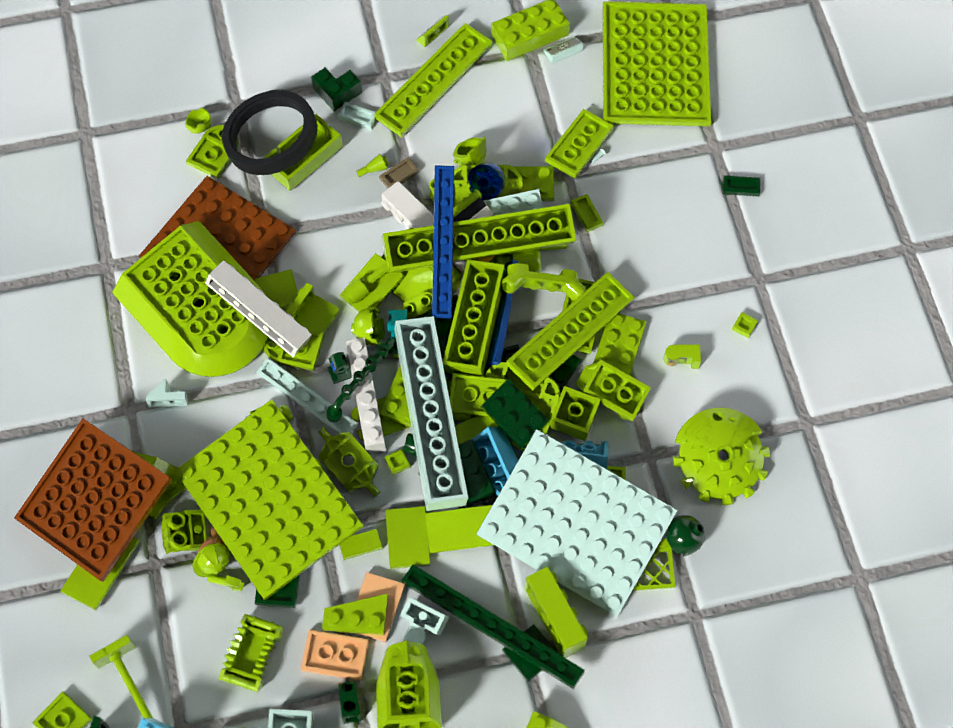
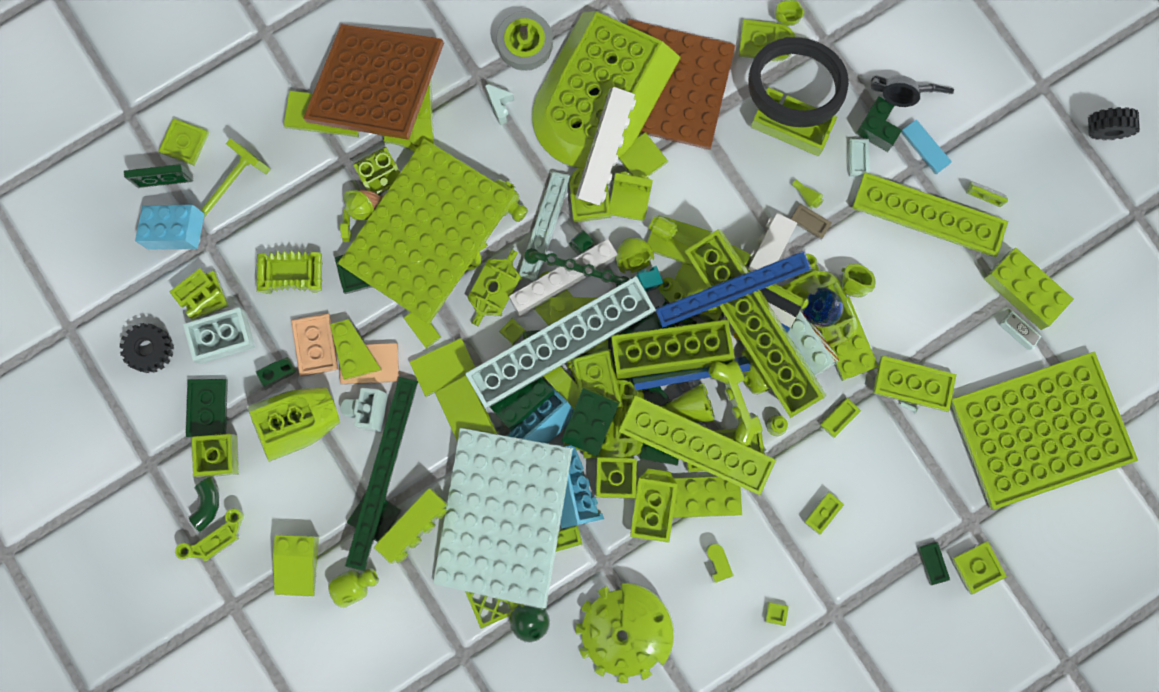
camera: 70 degrees right, 15 degrees up
(116, 351) = (524, 41): none -> wheel
(314, 56) = (903, 90): none -> black piece
(371, 60) = (926, 147): none -> medium azure tile
(530, 321) = (693, 405): none -> lime cone
(575, 262) = (777, 425): none -> lime hat
(594, 696) = (351, 586): none -> lime piece
(668, 254) = (824, 513): none -> lime plate
(756, 152) = (979, 567): none -> lime plate

